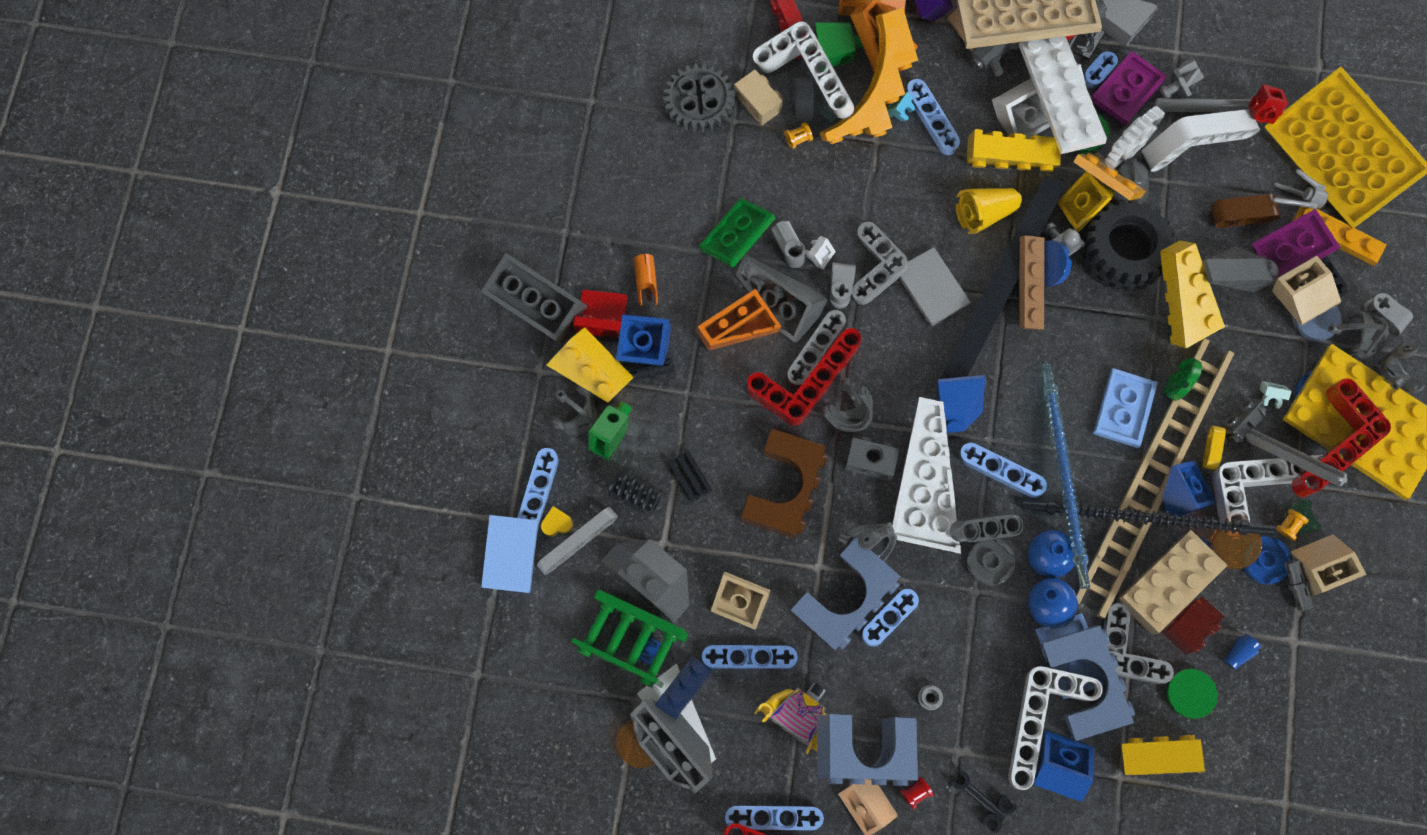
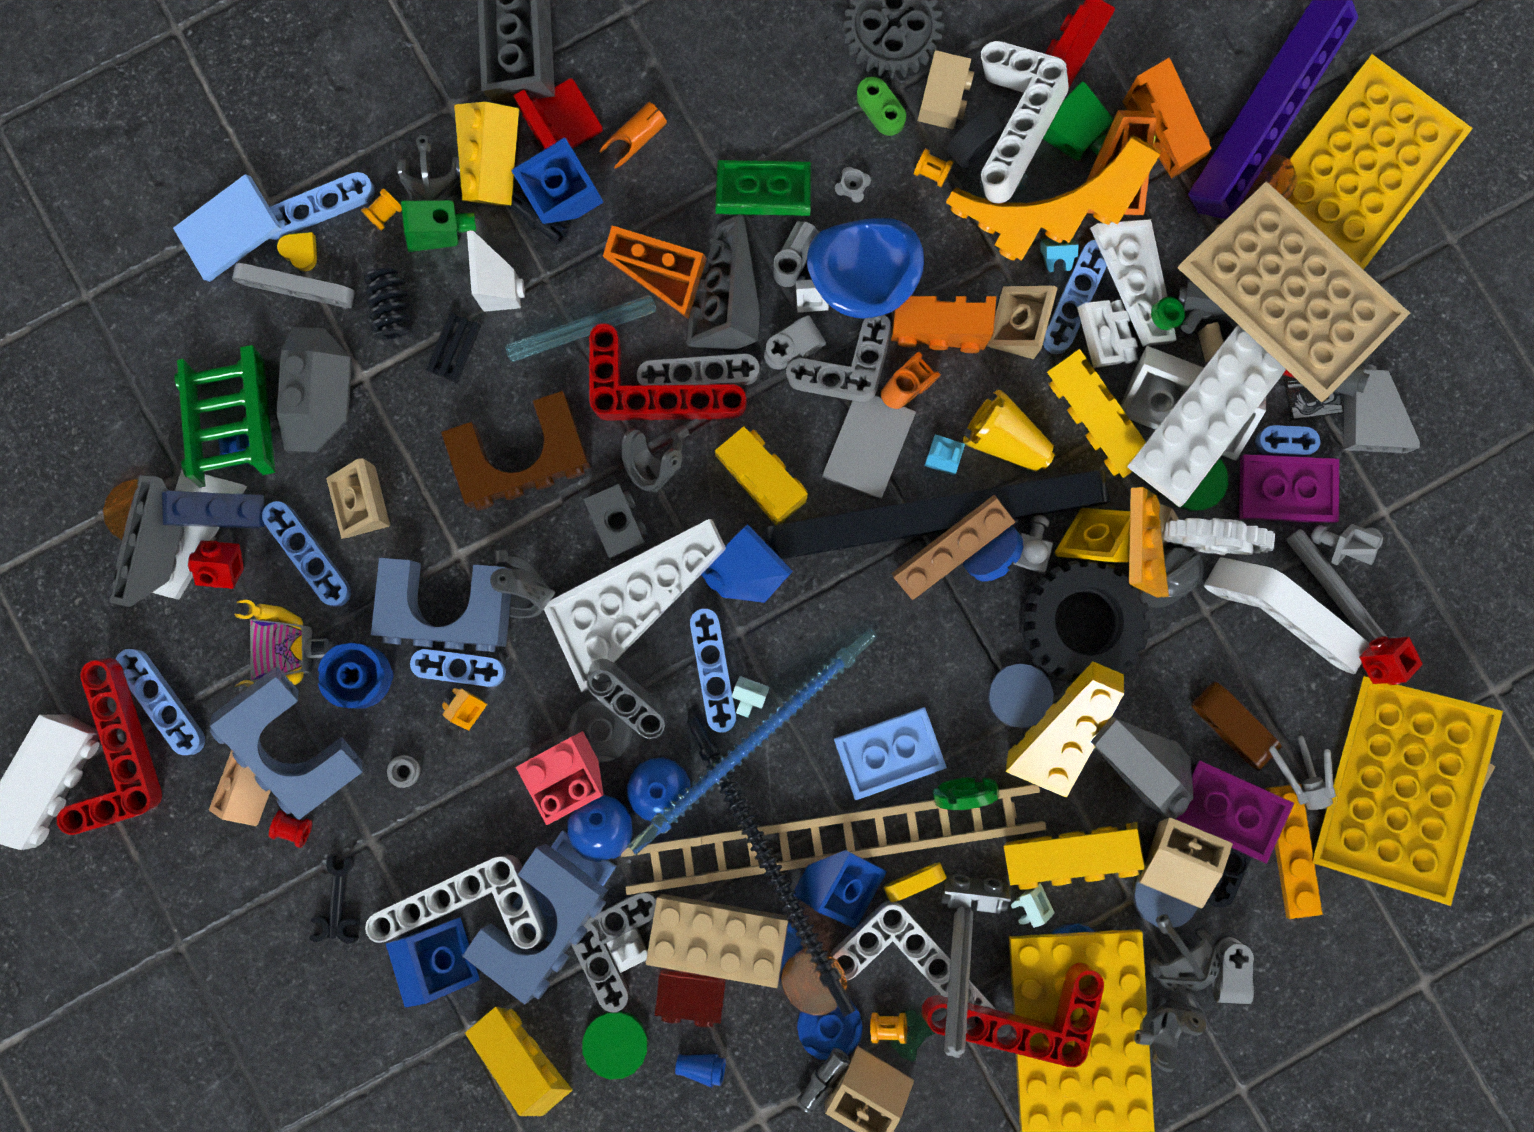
camera: 50 degrees right, 10 degrees up
(573, 454) = (381, 209): none -> light orange bush
(668, 418) = (492, 278): none -> white slope
(716, 714) = (216, 564): none -> red brick
(736, 395) = (580, 328): none -> clear light blue axle
(738, 137) = (879, 105): none -> bright green plate
(775, 179) = (853, 175): none -> light grey plate
(831, 207) = (866, 266): none -> blue piece
(860, 668) = (336, 675): none -> blue brick
(896, 193) = (944, 323): none -> orange wedge
(910, 356) = (762, 475): none -> yellow wedge
(914, 237) = (908, 382): none -> orange piece
(920, 631) = (464, 708): none -> light orange tile
(926, 151) = (1022, 319): none -> tan slope
(950, 77) = (1137, 273): none -> white wing
(968, 114) = (1107, 333): none -> white plate
(970, 251) = (944, 455): none -> medium azure tile
(982, 76) = (1167, 313): none -> green tile
(1008, 600) = (563, 778): none -> coral slope
(1014, 66) = (1210, 340): none -> tan tile
(1034, 459) = (750, 694): none -> light aqua tile
(1139, 643) = (628, 950): none -> white tile
(1143, 312) = (1020, 695): none -> sand blue tile
(1262, 346) = (1075, 856): none -> yellow wedge

